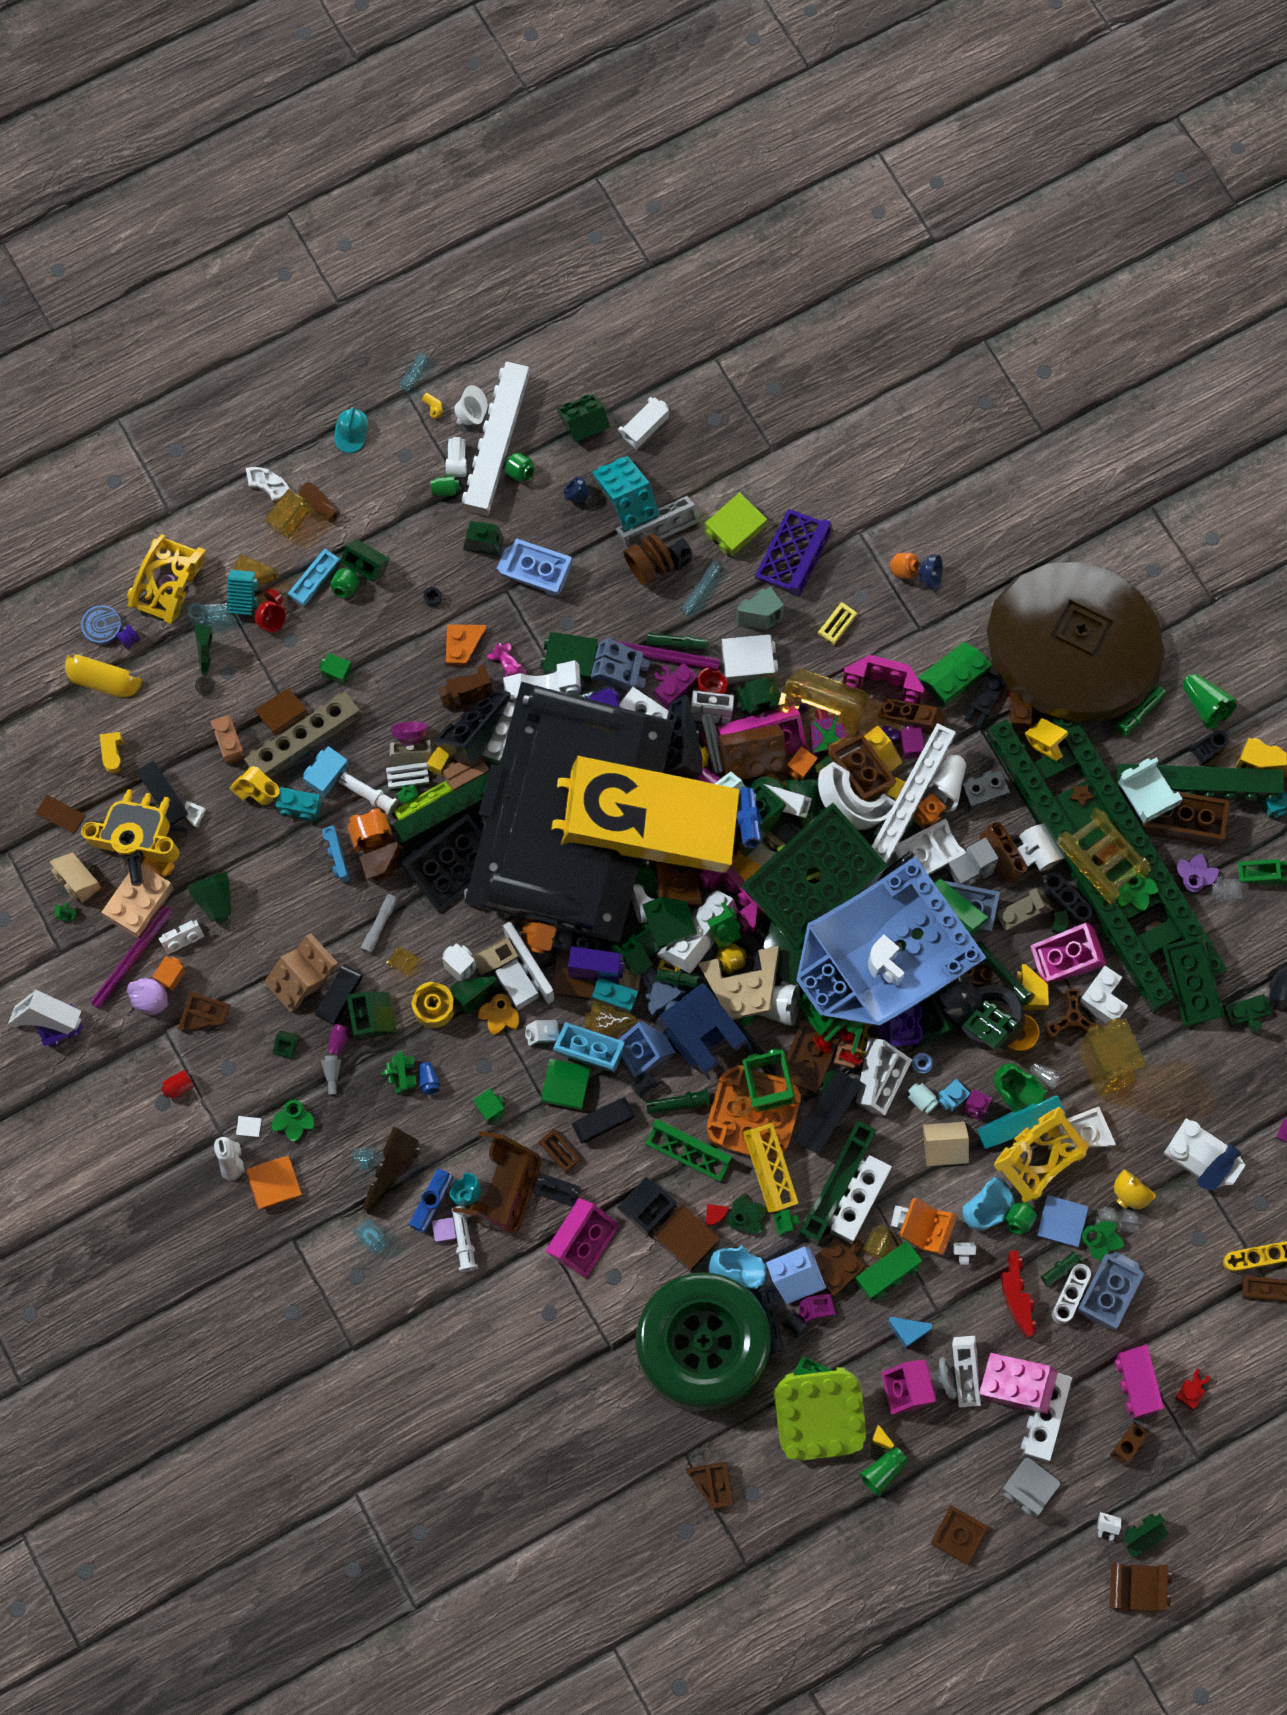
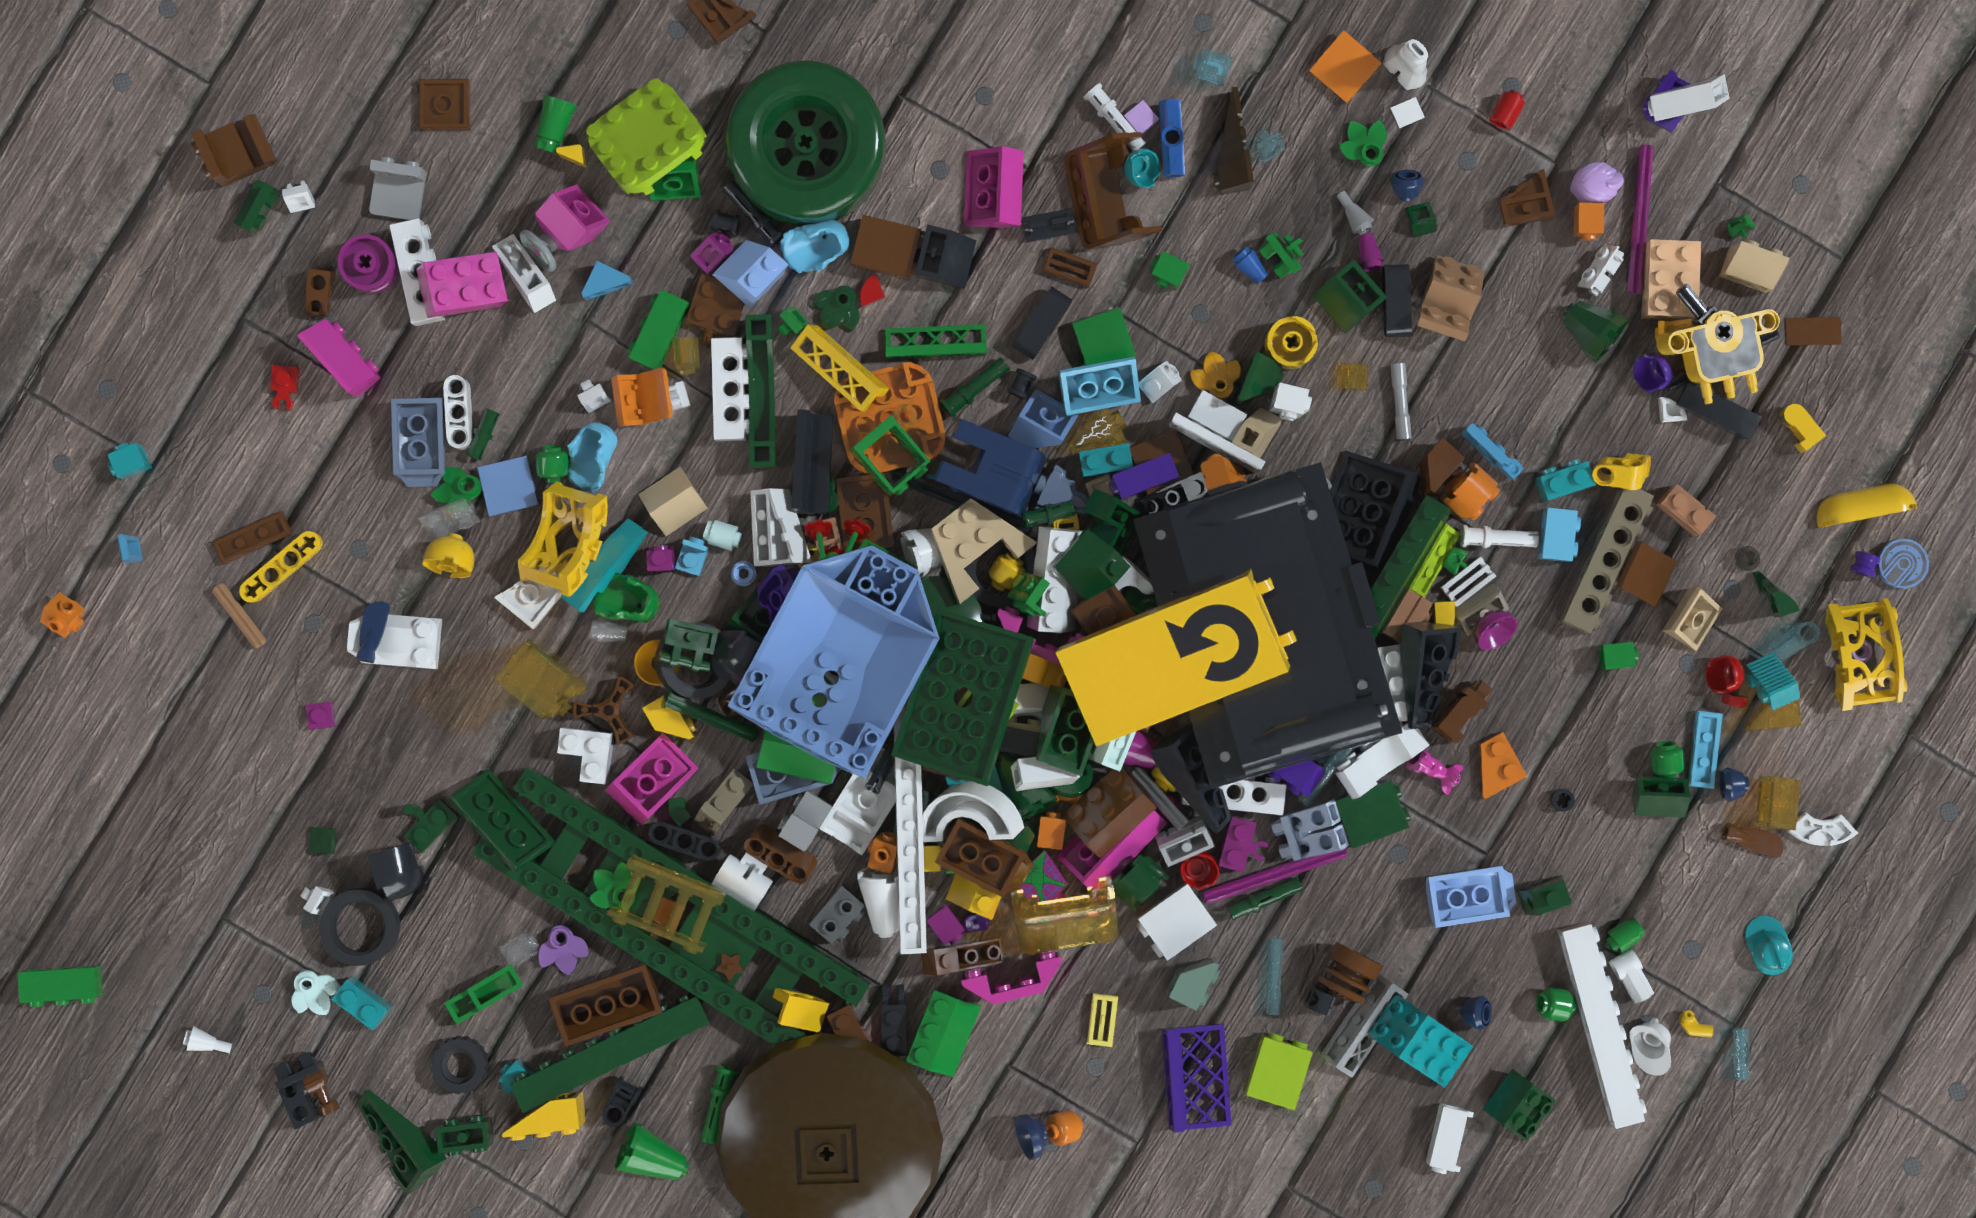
camera: 145 degrees right, 15 degrees up
(191, 844) = (1652, 372): none -> dark purple hair
(268, 667) = (1693, 618): none -> tan slope
(281, 1072) = (1407, 184): none -> dark blue cone
(310, 543) = (1733, 784): none -> dark blue cone
(749, 818) = (1067, 720): blue piece -> none
(881, 959) = (841, 641): white brick -> none
(1018, 1303) = (507, 373): red slope -> none
(1094, 1441) = (355, 256): none -> magenta wheel
(1148, 790) = (656, 1006): light aqua panel -> none

